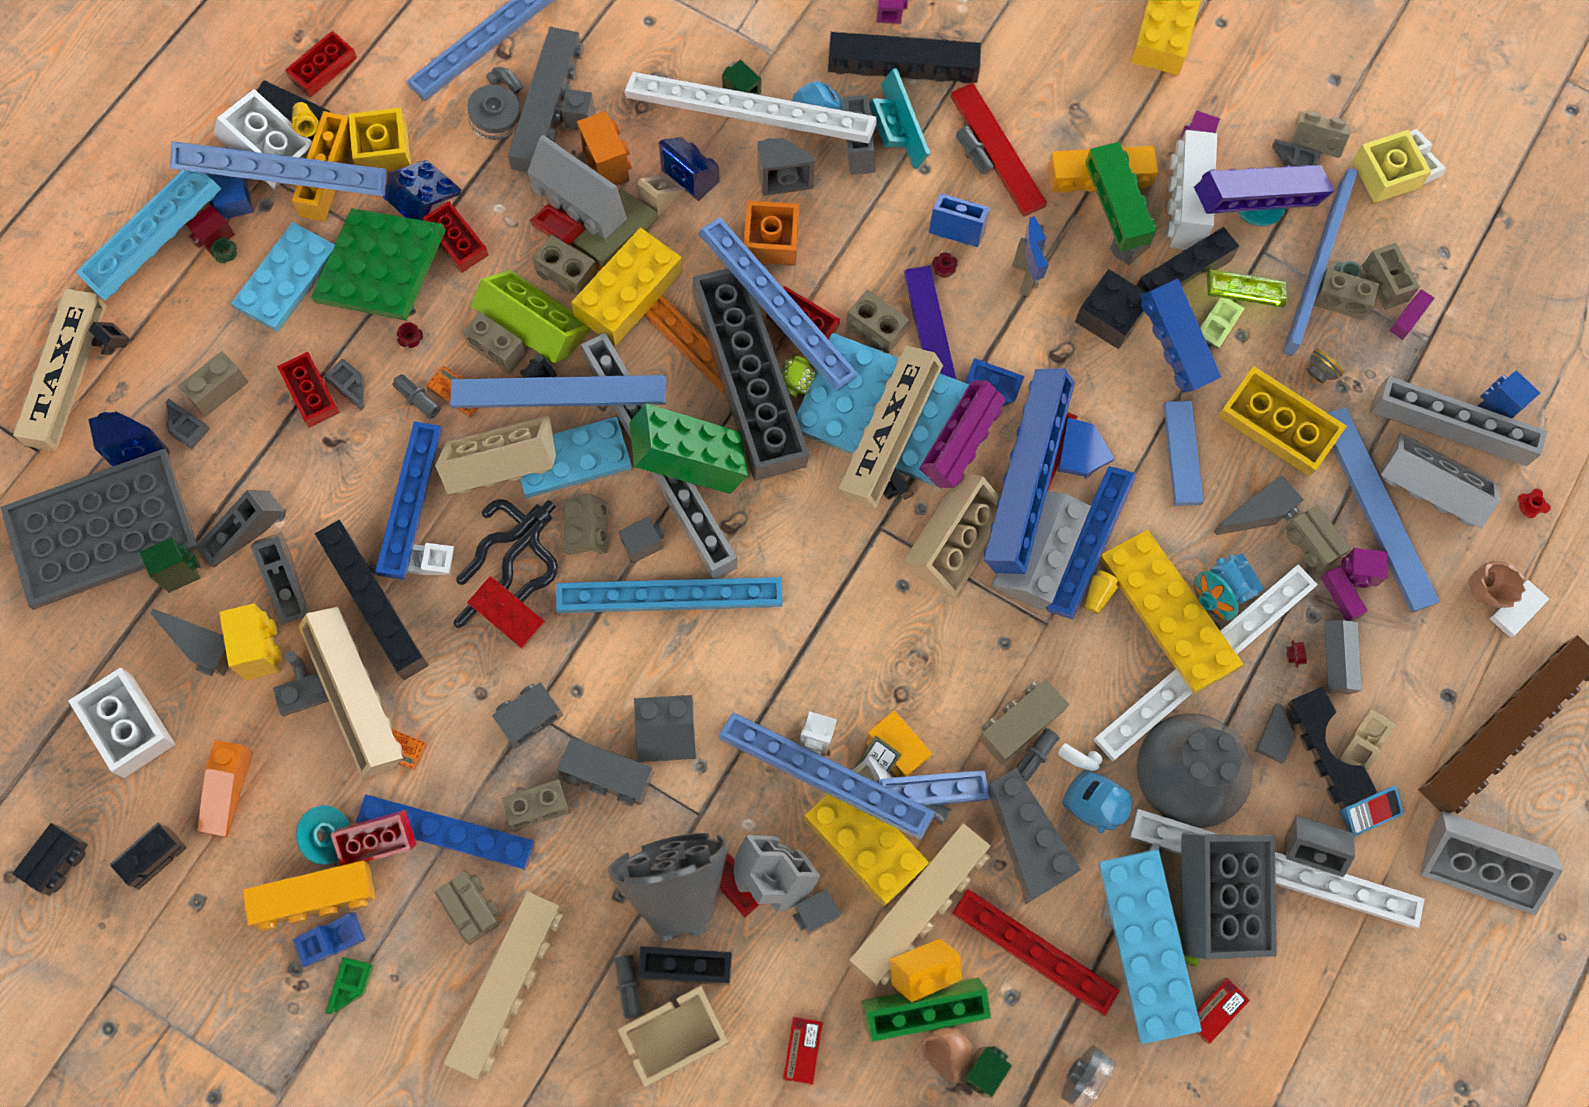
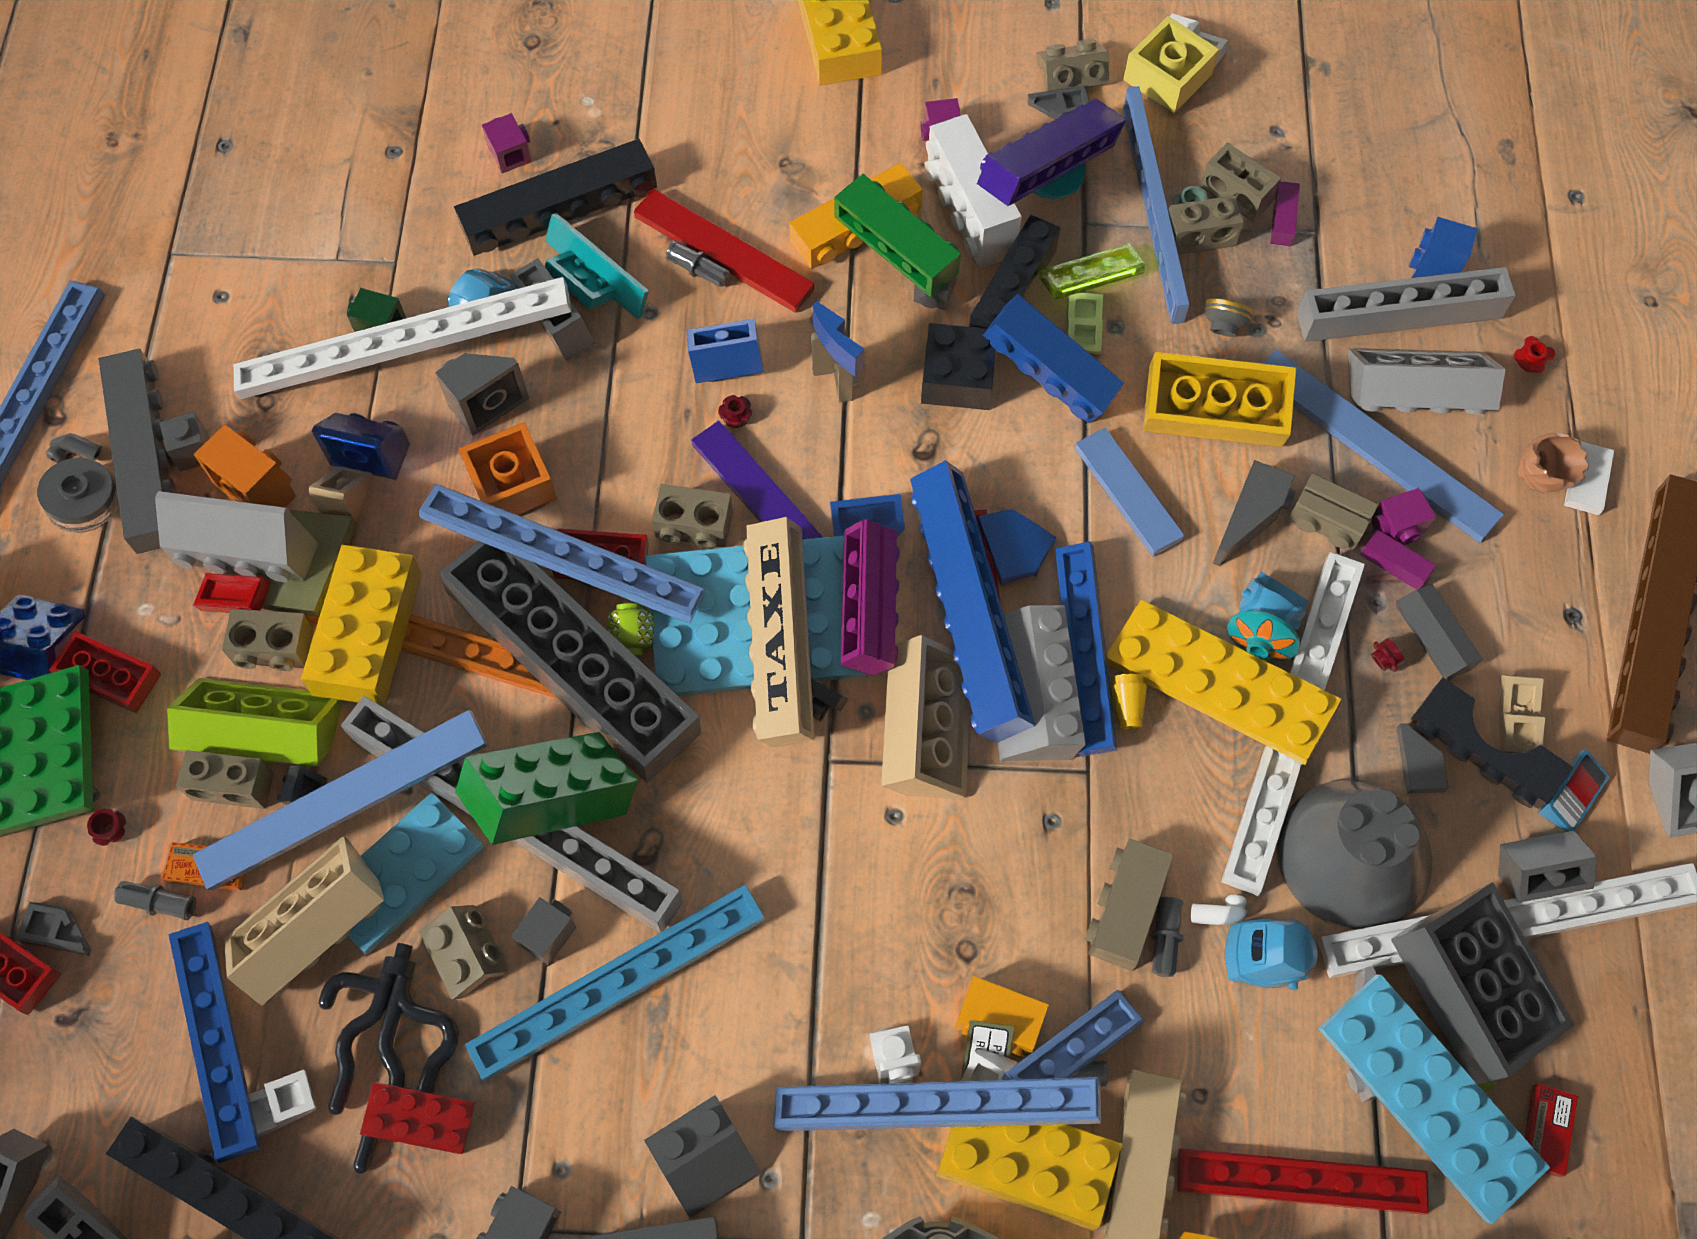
camera: 25 degrees left, 5 degrees down
(1033, 842) = (1225, 1046): dark grey wedge -> none

